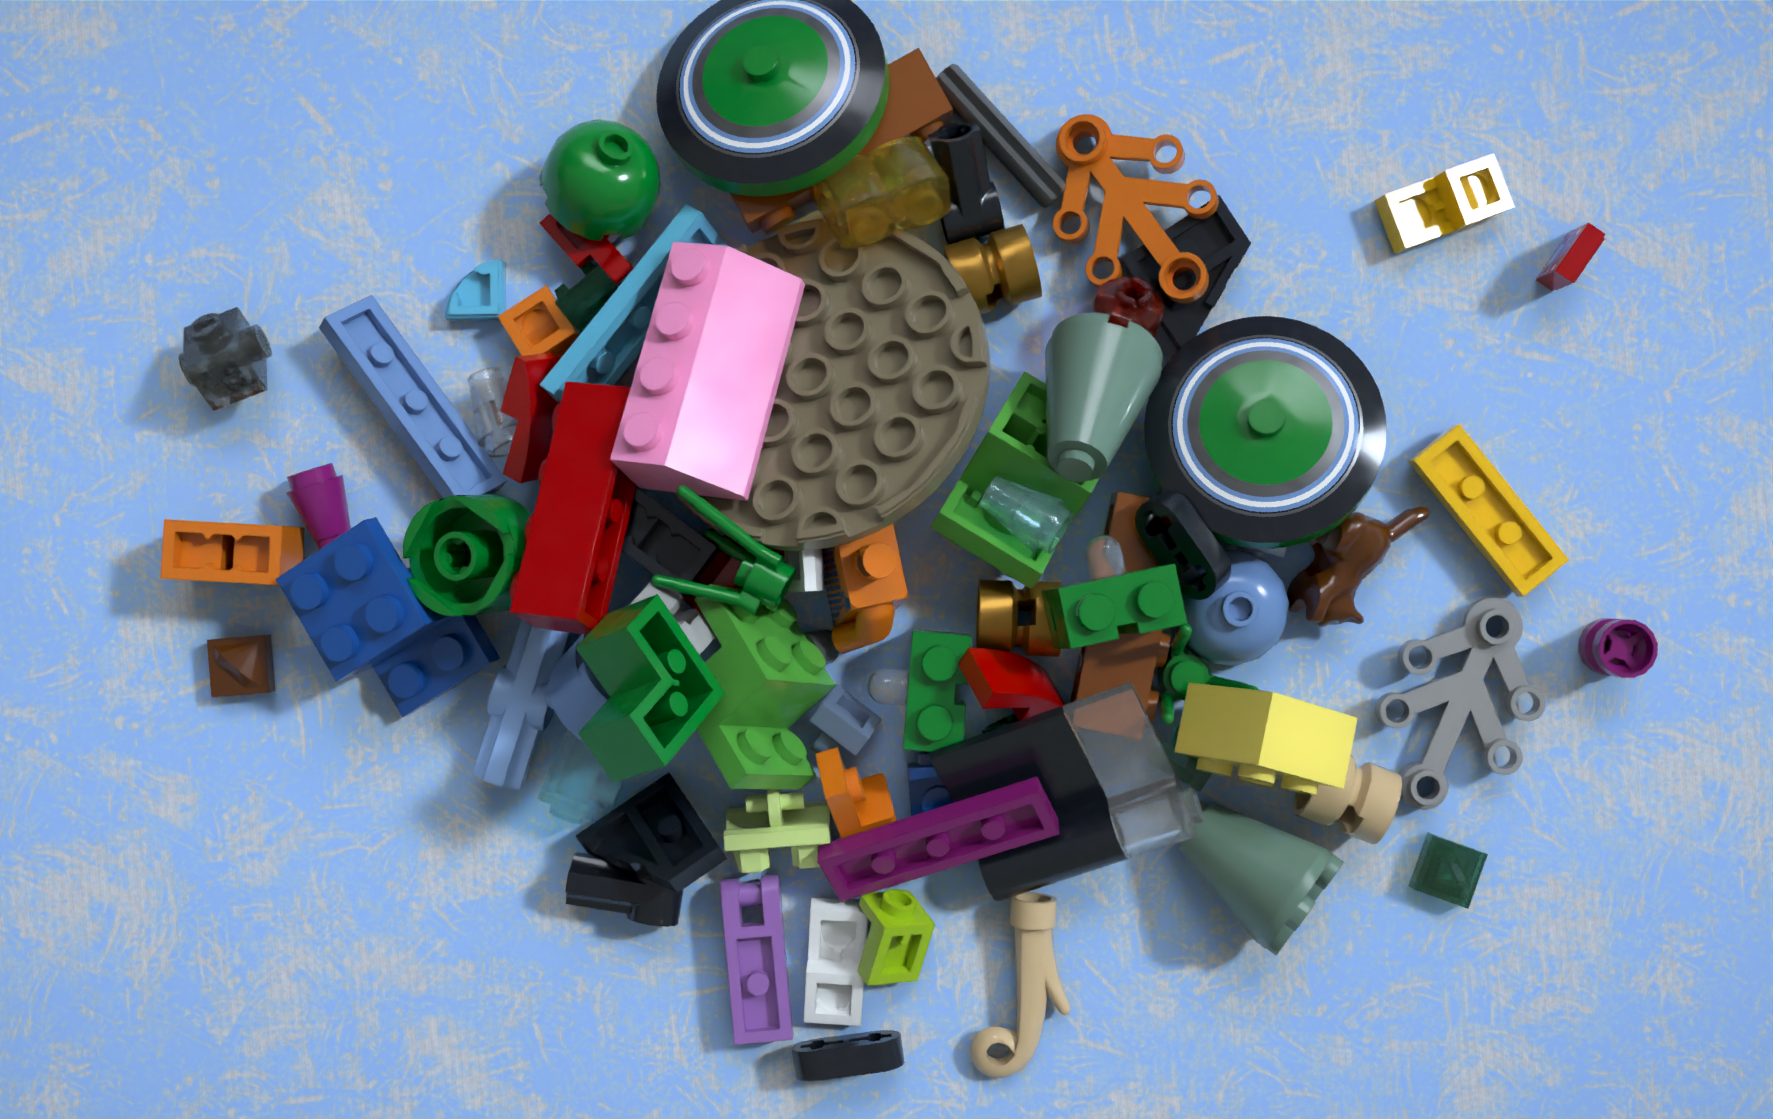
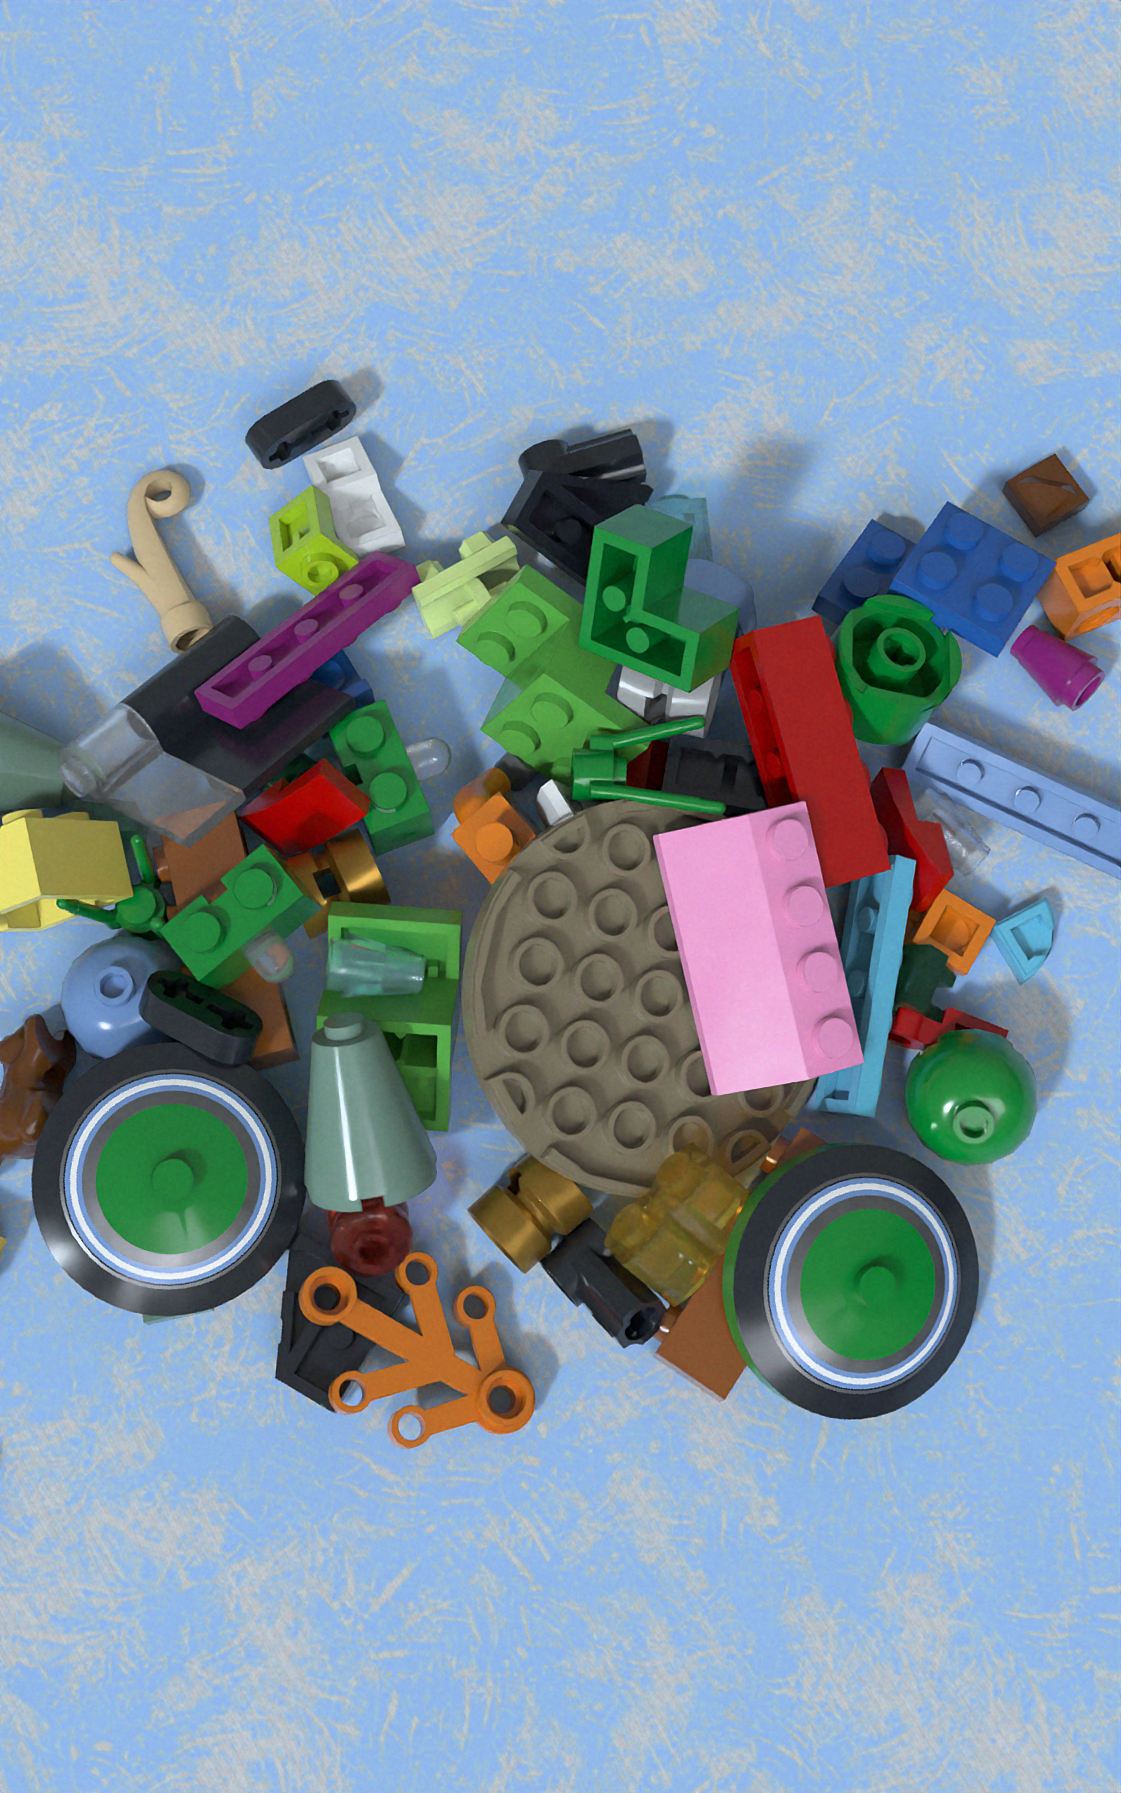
camera: 150 degrees right, 15 degrees down
(519, 707) = (766, 559): light blue piece -> none
(756, 962) = (427, 465): medium lavender plate -> none
(843, 722) = (455, 707): sand blue tile -> none
(853, 801) = (409, 641): orange bracket -> none
(1001, 136) = (595, 1363): dark grey axle -> none
(1444, 203) = (86, 1534): slope -> none

